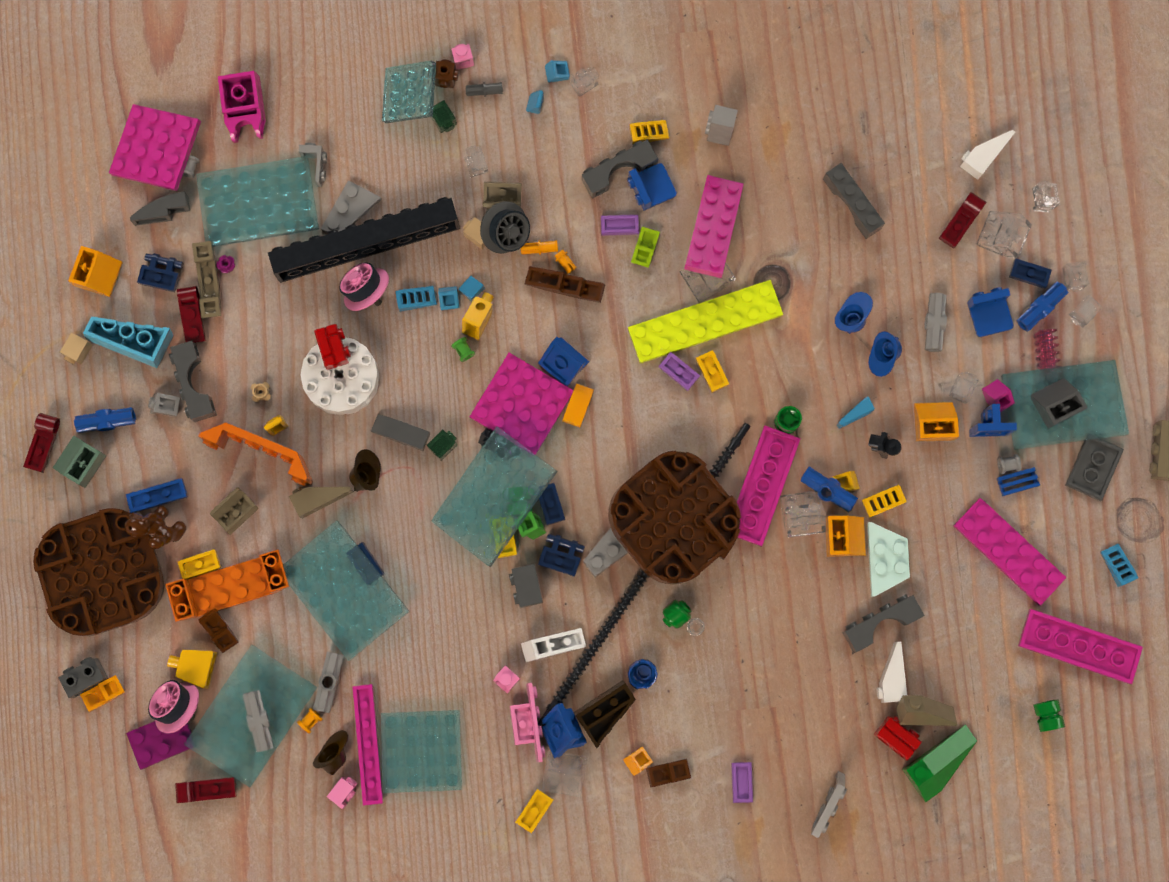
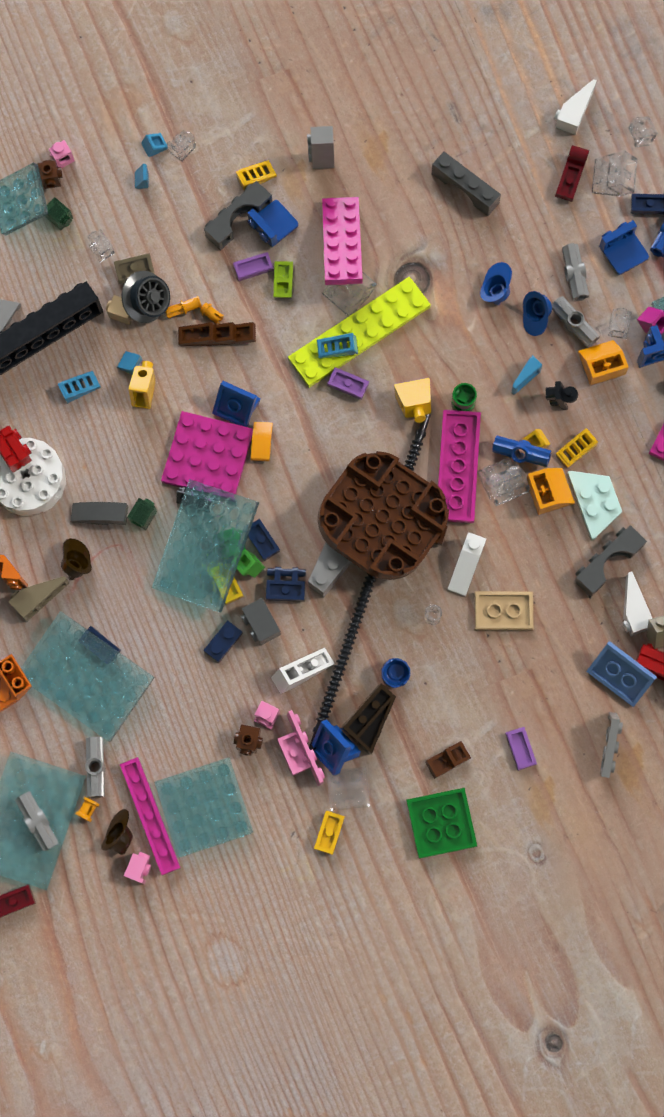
camera: 10 degrees left, 5 degrees down
(363, 286) = (26, 387): bright pink piece -> none
(448, 298) = (110, 378): dark azure slope -> none
(463, 349) = (137, 420): bright green bush -> none
(484, 89) = (90, 178): dark grey axle -> none
(485, 593) = (223, 641): none -> dark blue plate
(489, 695) = (248, 732): none -> reddish brown brick
(638, 761) = (415, 757): light orange slope -> none
(644, 833) = (441, 823): none -> green plate
(676, 614) = (411, 607): green head -> none
(695, 333) = (338, 352): none -> dark azure slope
(712, 371) = (379, 374): yellow plate -> none
(739, 406) = (414, 398): none -> yellow torso
(742, 586) = (467, 564): none -> white slope
(765, 642) = (503, 611): none -> tan tile
(860, 739) = (621, 674): none -> medium blue plate
(924, 384) = (583, 330): none -> light grey piece

